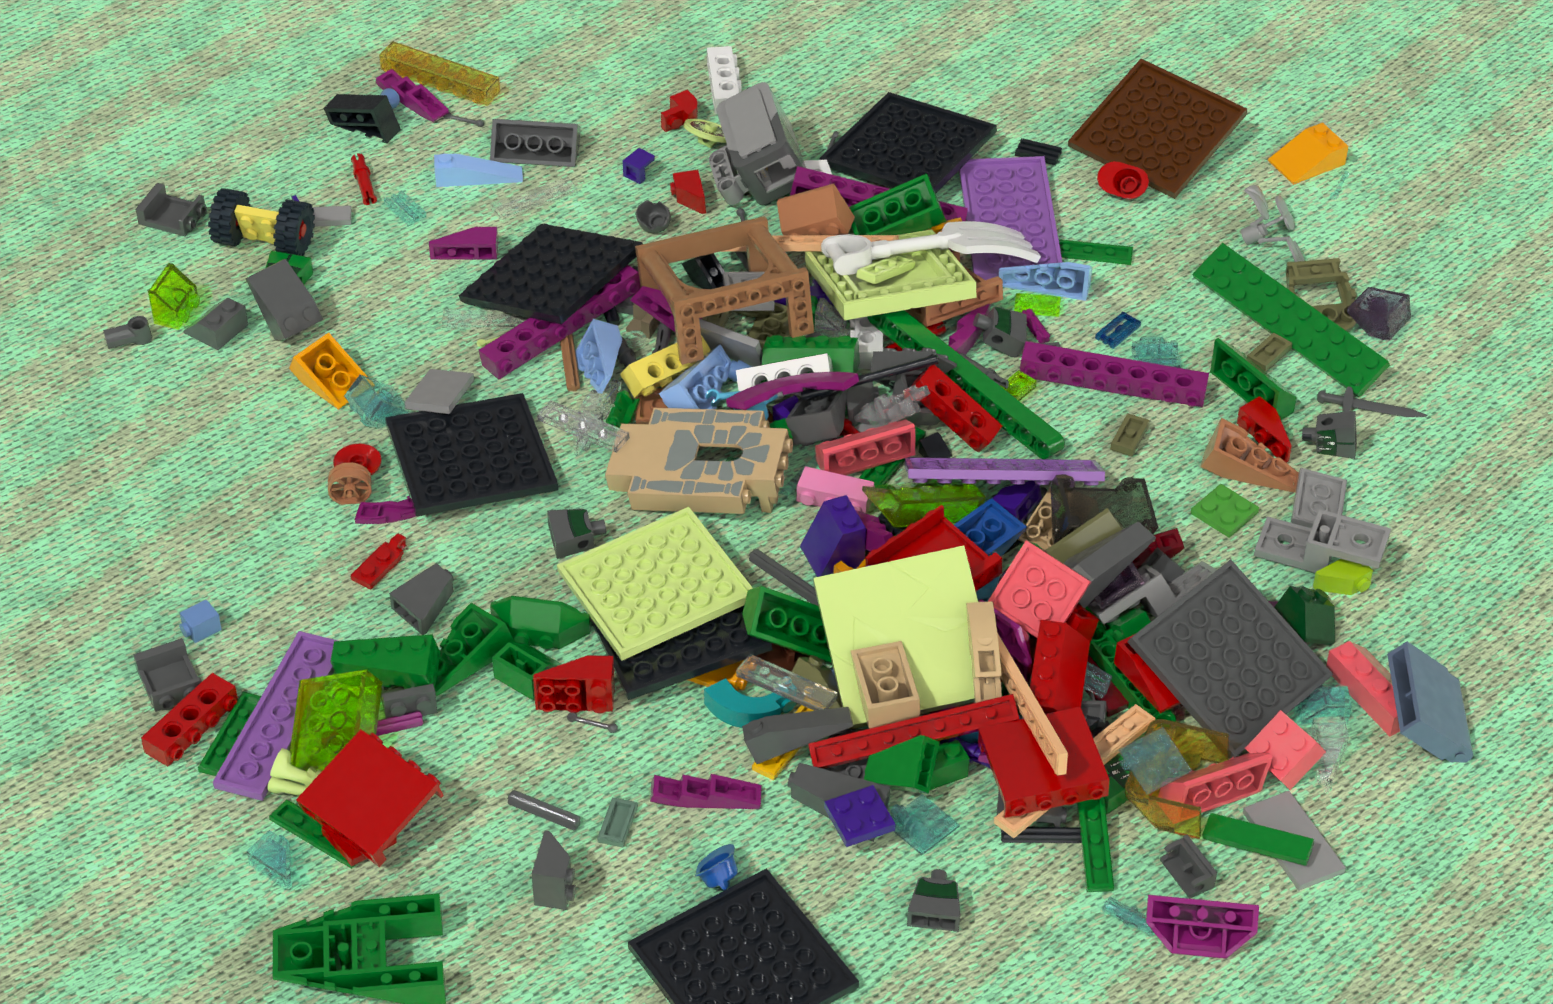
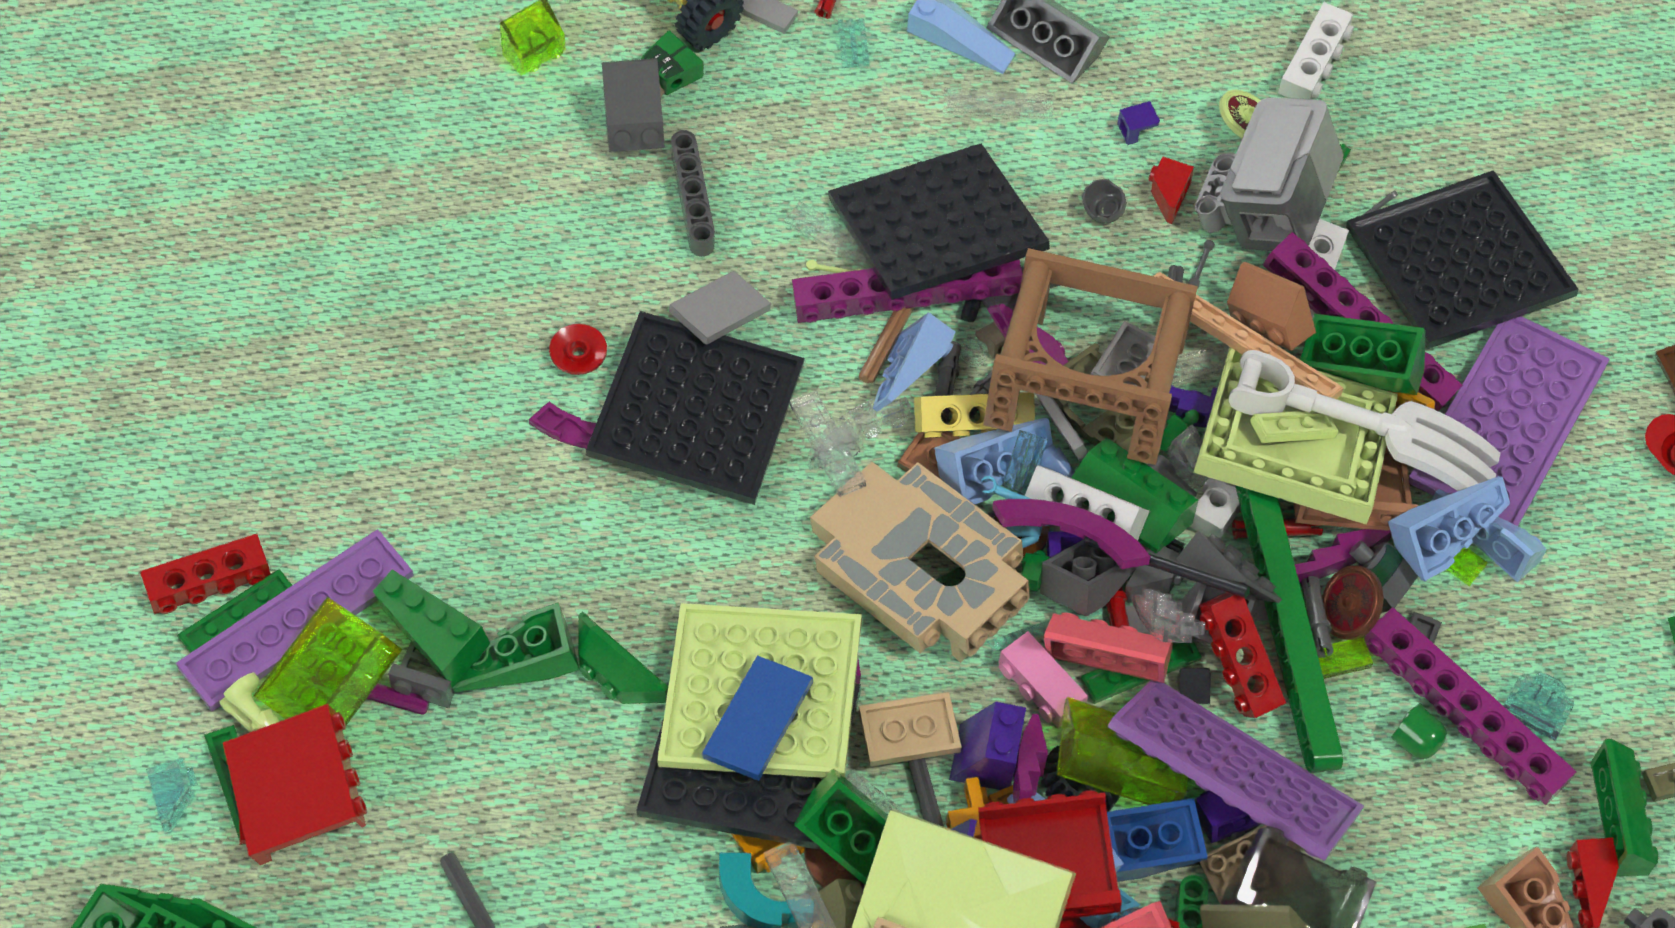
camera: 30 degrees right, 15 degrees up
(135, 331) = (471, 57): dark grey piece -> none
(166, 674) = (222, 506): dark grey panel -> none
(199, 621) = (293, 459): medium blue brick -> none
(219, 324) = (560, 93): dark grey slope -> none
(326, 370) = (628, 221): light orange slope -> none
(348, 478) = (546, 376): nougat wheel -> none
(364, 337) = (686, 157): none -> dark grey beam
(374, 401) = (648, 283): clear light blue slope -> none
(380, 562) = (517, 488): red hinge -> none
(423, 597) = (528, 560): dark grey slope -> none
(469, 244) = (884, 130): magenta slope -> none
(517, 664) = (568, 711): green slope -> none
(573, 531) = (732, 566): dark grey torso -> none
(577, 686) = (598, 770): red slope -> none
(612, 728) = (576, 798): dark grey hinge -> none
(623, 410) = (883, 450): green hinge -> none
(670, 593) = (757, 718): none -> blue tile
(682, 107) = (1240, 75): red brick -> none
(705, 271) = (1108, 315): black slope -> none
(722, 373) = (1026, 463): none -> clear light blue tile
(774, 557) = (909, 729): none -> tan plate
(999, 348) = (1353, 602): none -> copper shield
(1023, 279) = (1441, 528): none -> light blue wedge
(1031, 148) = (1617, 344): black tile -> none
(1036, 327) = (1429, 594): magenta axle -> none
(1096, 252) = (1577, 522): green tile -> none
(1097, 402) = (1420, 733): none -> green helmet
(1114, 340) = (1524, 655): tile -> none
(1129, 434) = (1428, 796): olive plate -> none

